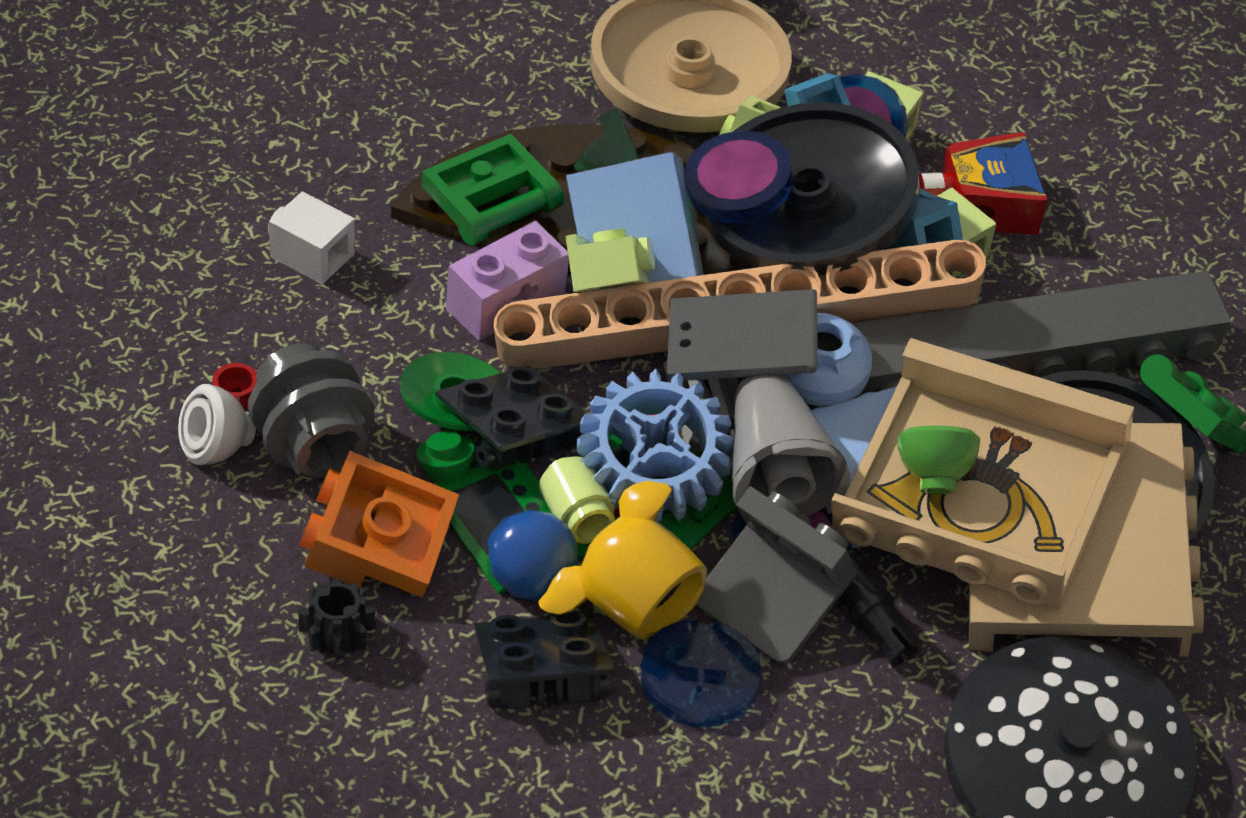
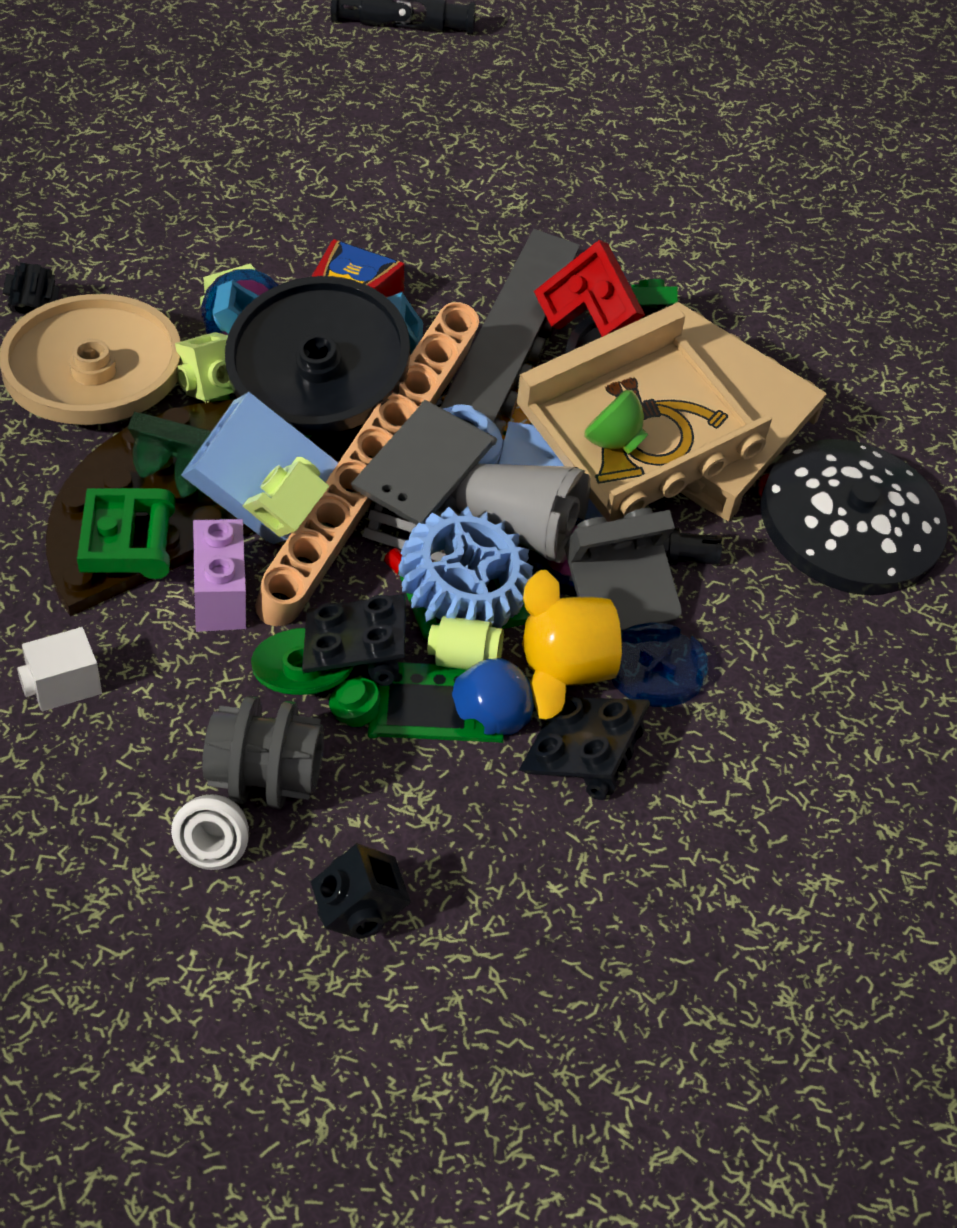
camera: 55 degrees left, 0 degrees up
(212, 558) = (360, 892): none -> black brick
(236, 378) = (169, 789): red plate -> none
(337, 618) = (470, 845): black gear -> none
(378, 525) = (399, 775): orange plate -> none
(738, 176) = (282, 376): tile -> none
(1128, 349) = (590, 283): none -> red plate

